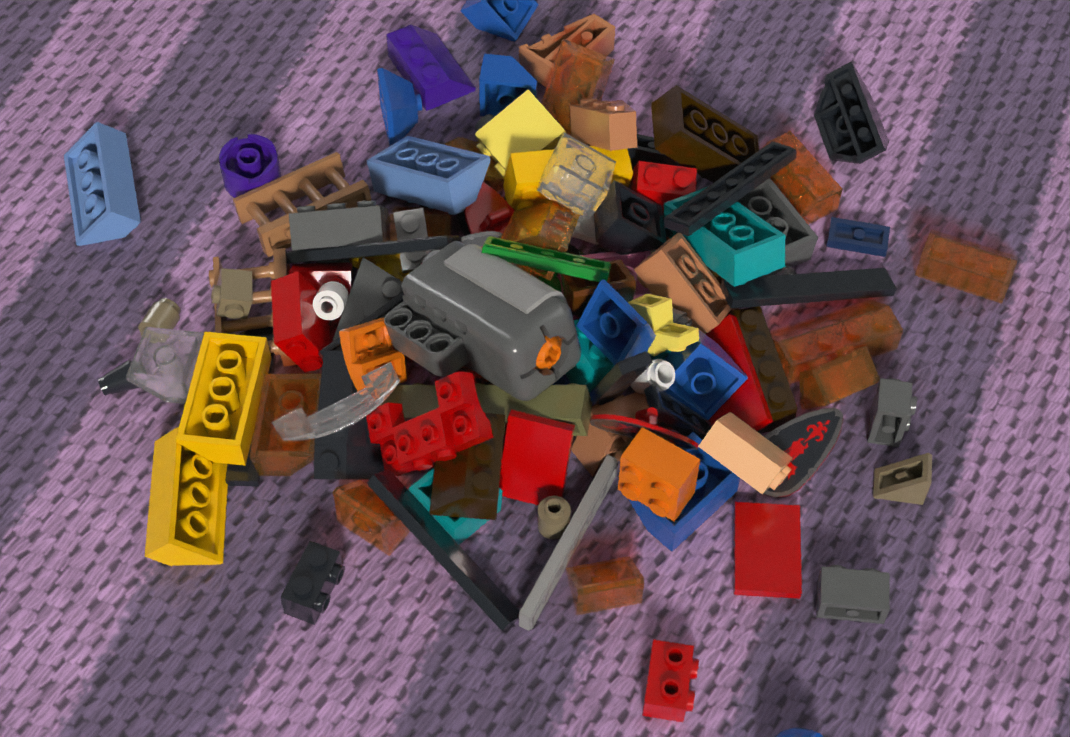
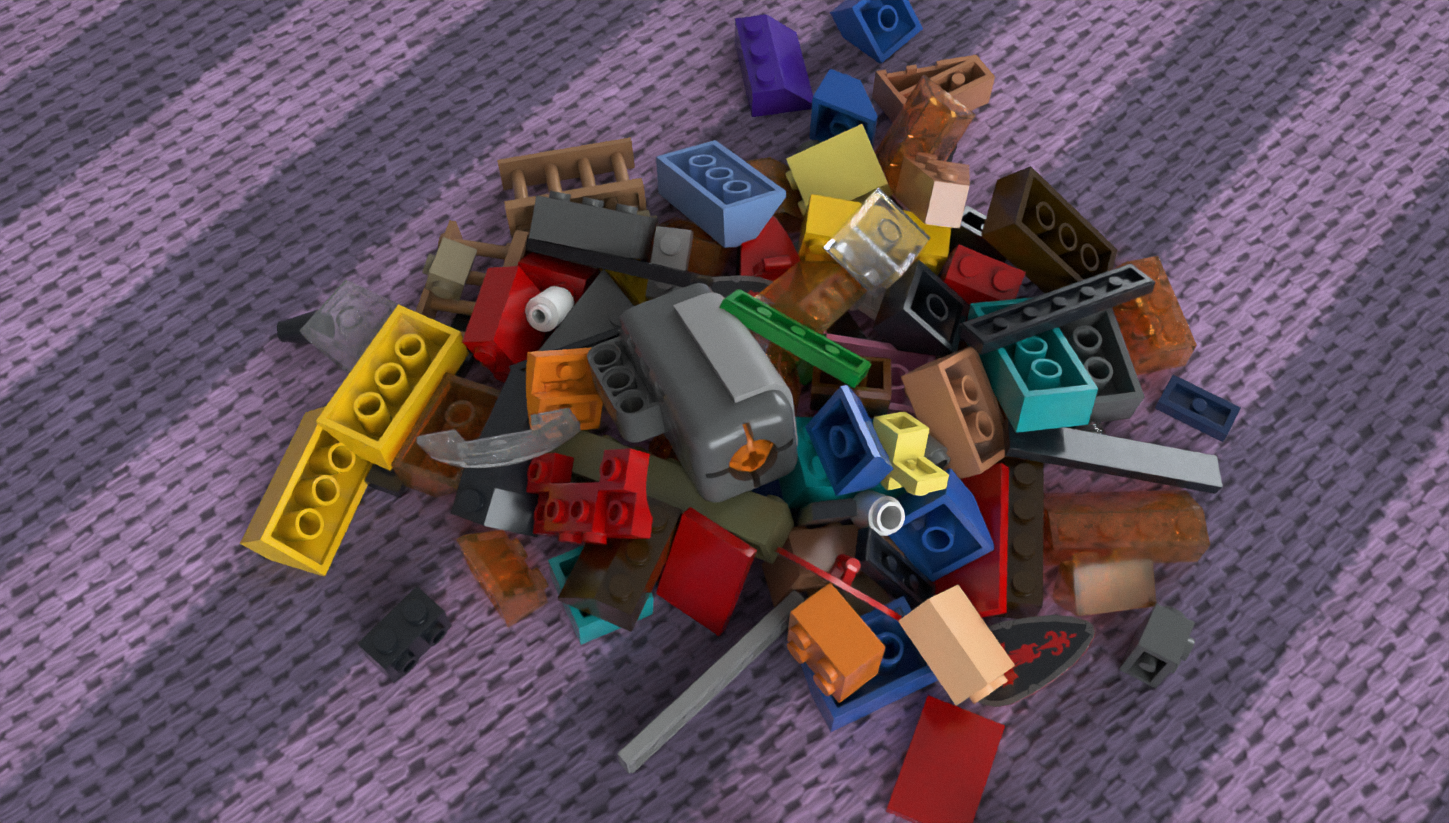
camera: 20 degrees right, 5 degrees up
(101, 186) = (373, 107): medium blue slope -> none
(161, 315) = (372, 271): dark tan brick -> none
(248, 164) = (530, 124): dark purple brick -> none
(398, 105) = (718, 101): blue slope -> none
(444, 549) = (562, 647): black tile -> none
(553, 517) = (704, 656): dark tan brick -> none
(605, 585) = (734, 747): clear orange slope -> none
(849, 118) = (1238, 259): black wedge -> none
(904, 480) = (1145, 736): dark tan slope -> none
(966, 266) = (1322, 484): clear orange slope -> none

